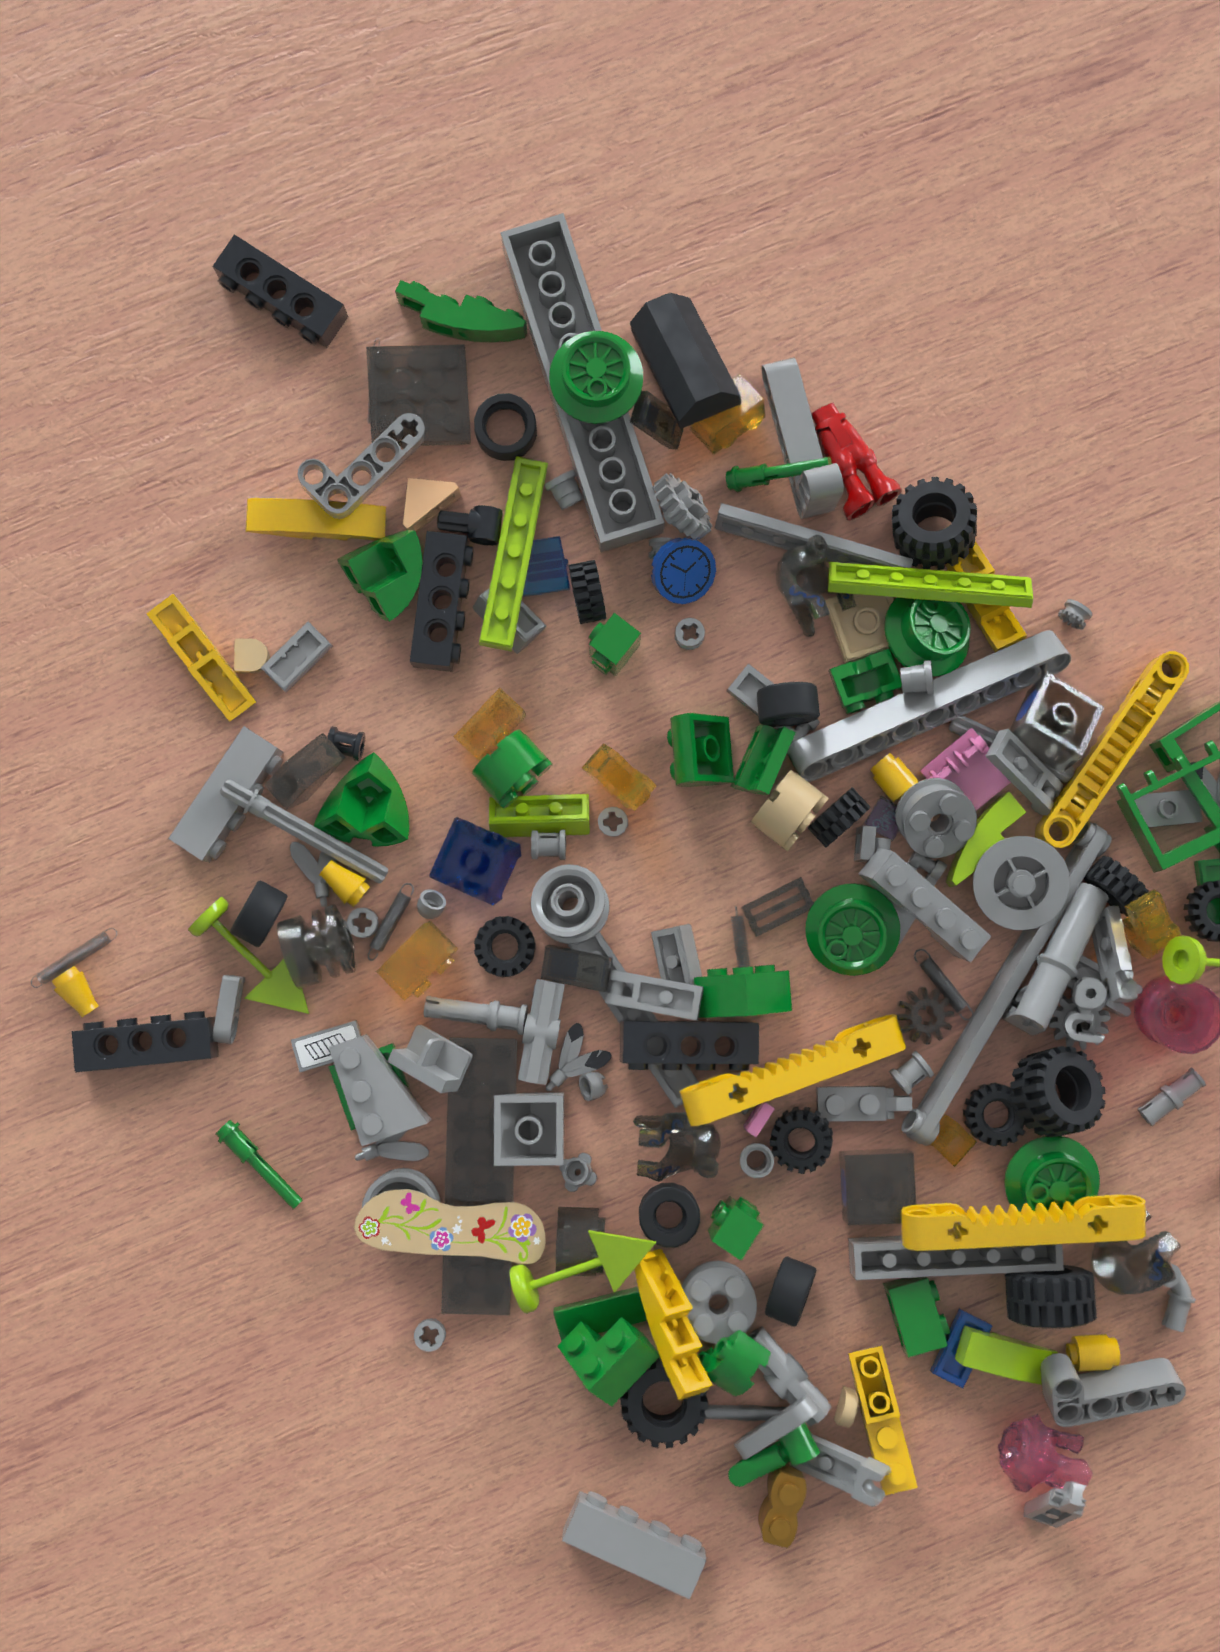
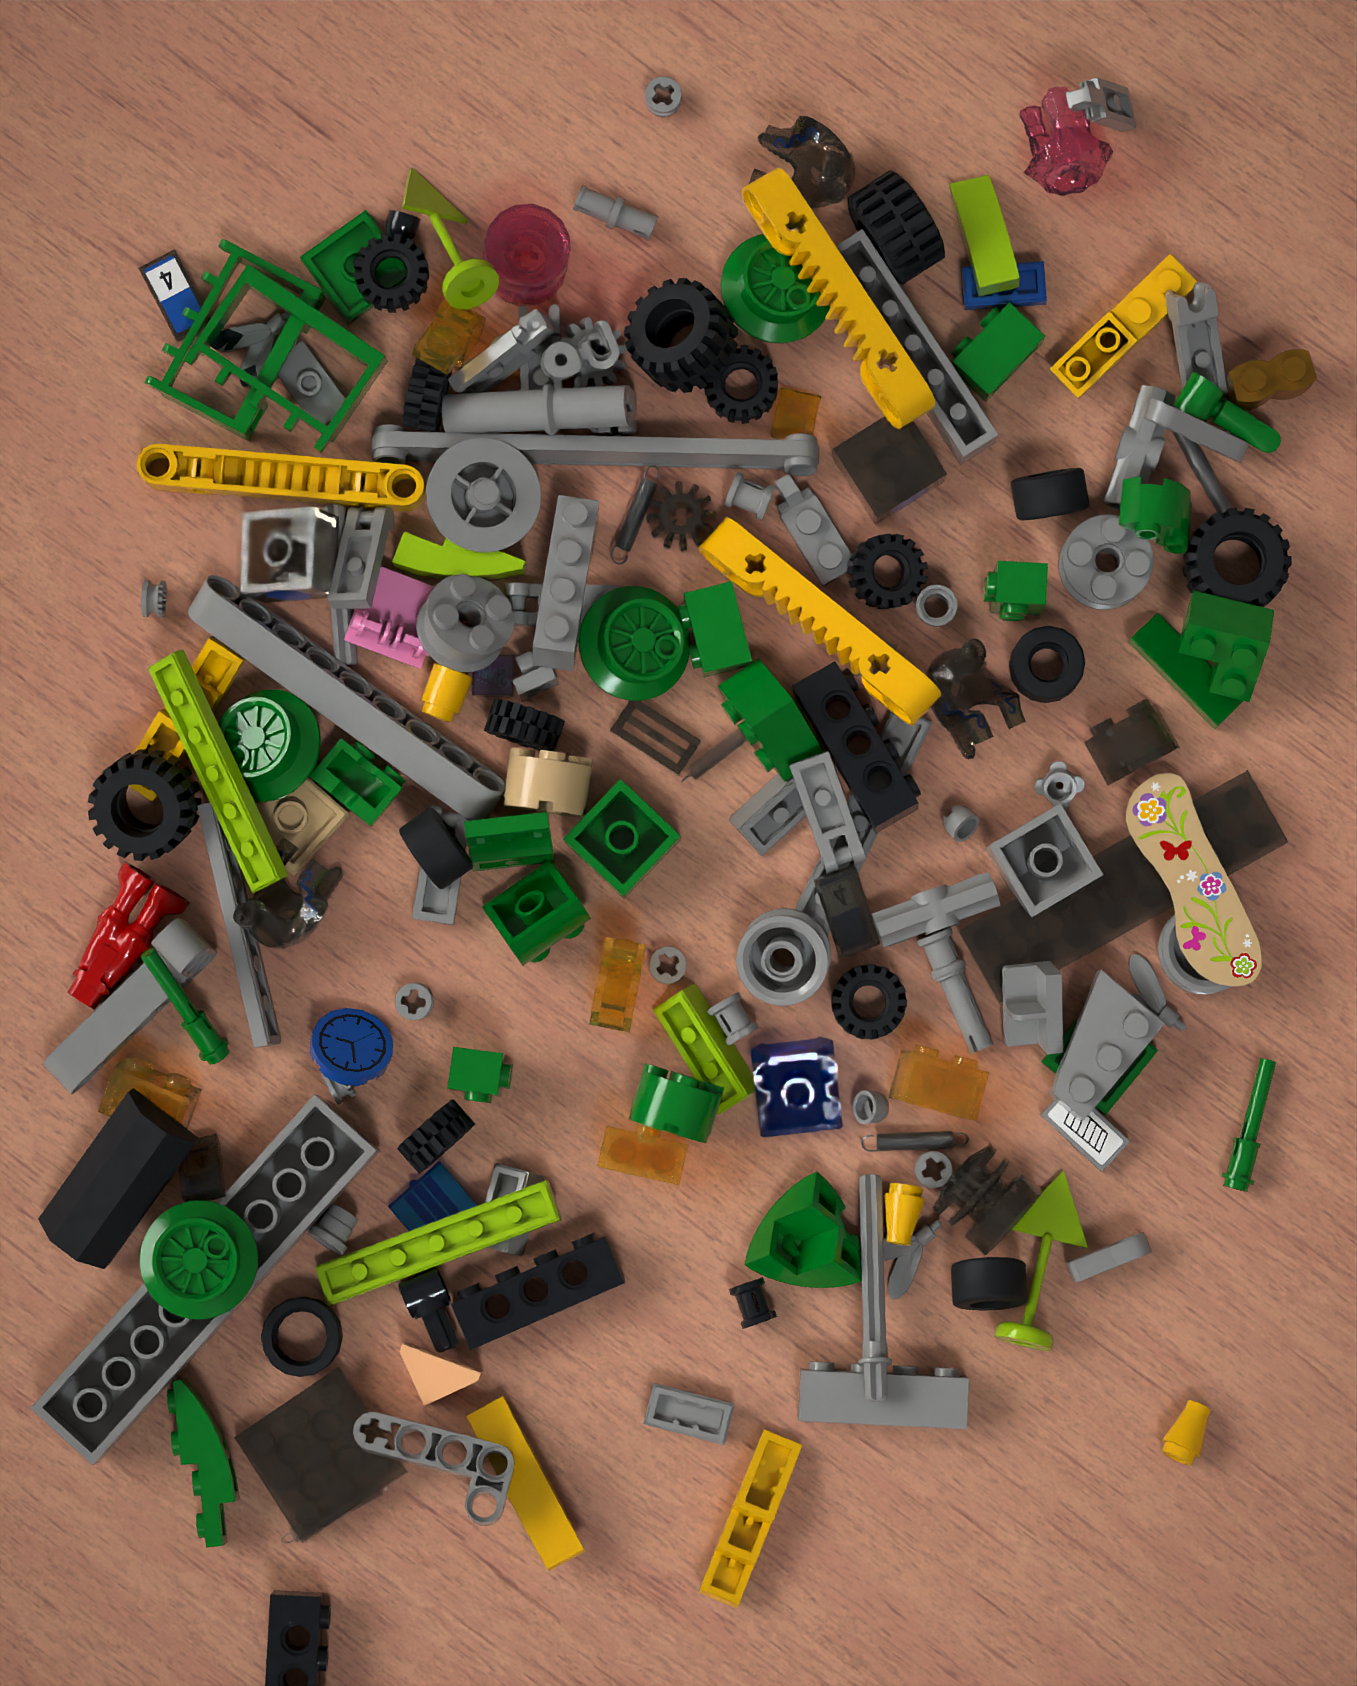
camera: 115 degrees left, 0 degrees up
(46, 976) = (1163, 1461): flat silver piece -> none
(92, 1055) = (1244, 1369): black brick -> none
(249, 655) = (717, 1466): tan tile -> none
(304, 772) = (809, 1324): clear smoke slope -> none
(386, 572) = (540, 1370): green brick -> none
(426, 1345) = (1331, 839): light grey bush -> none
(570, 1063) = (951, 857): light grey piece -> none
(616, 1254) = (1119, 695): lime piece -> none
(672, 1332) = (1148, 608): yellow slope -> none
(682, 506) = (283, 1086): light grey gear -> none
(719, 839) = (622, 839): none -> green brick
(758, 1118) = (892, 628): bright pink tile -> none
(830, 993) = (716, 629): none -> green brick
(846, 1407) = (1134, 368): tan tile -> none
(917, 678) = (327, 726): light grey piece -> none
(1093, 1352) = (928, 149): yellow brick -> none
(1107, 1393) = (960, 114): light grey beam -> none
(1178, 1302) = (822, 90): light grey piece -> none

